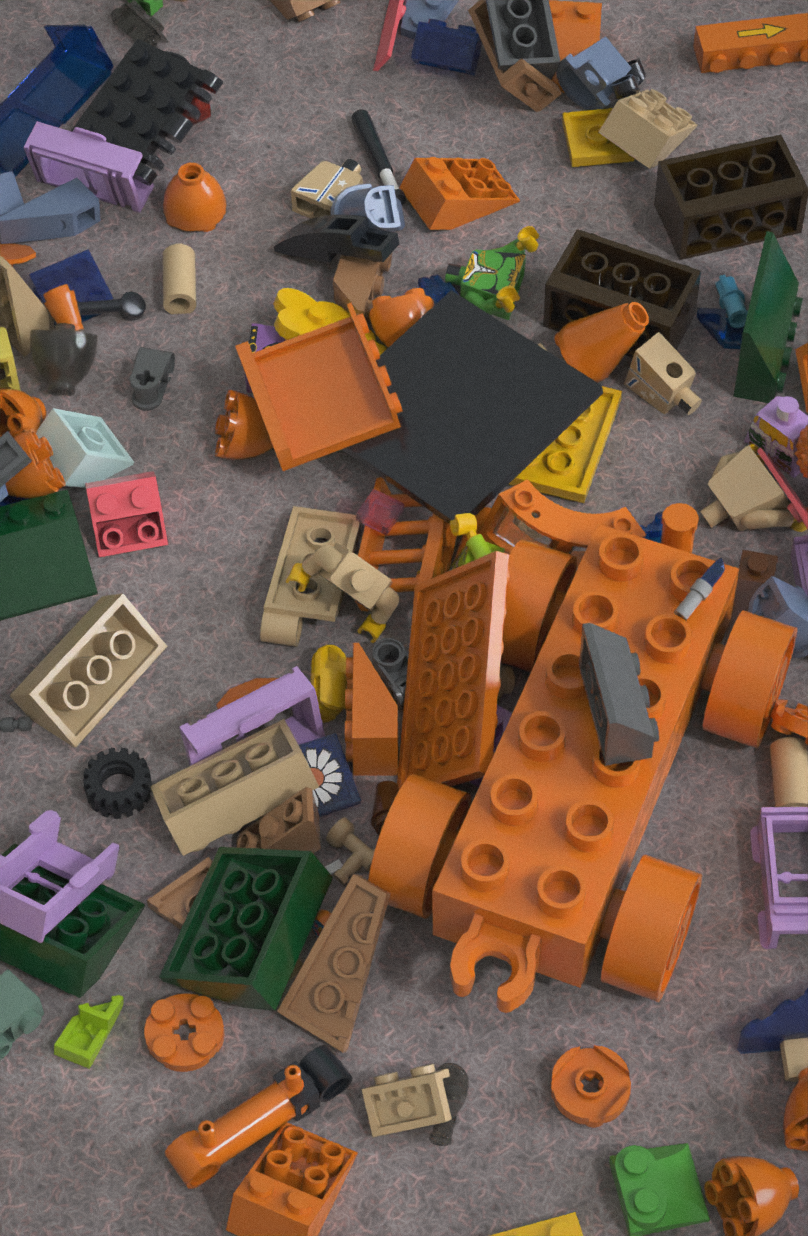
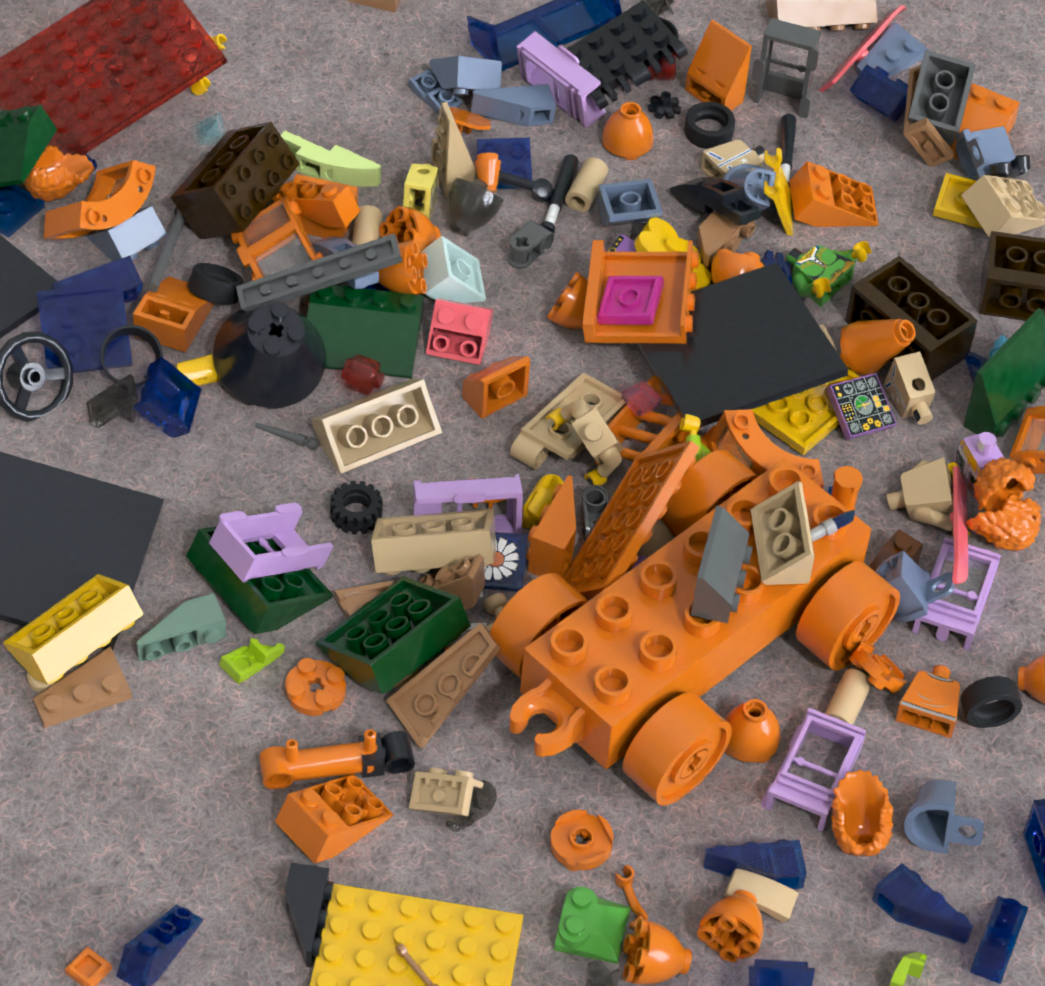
camera: 20 degrees right, 5 degrees down
(42, 614) = (362, 374): none -> clear red head
(151, 294) = (562, 185): none -> black piece
(204, 562) = (497, 385): none -> orange slope
(215, 152) = (664, 106): none -> black plant
(240, 283) = (628, 202): none -> sand blue slope
(261, 87) = (719, 67): none -> orange slope
(283, 173) = (712, 111): none -> black tyre
(313, 400) = (630, 300): none -> dark pink tile
(332, 19) = (779, 83): none -> dark grey piece
(404, 205) = (780, 191): none -> yellow flag
(620, 421) = (861, 406): none -> tile
(663, 624) = (783, 537): none -> tan slope
(682, 1130) = (626, 884): none -> orange piece
(716, 857) = (754, 732): none -> orange piece

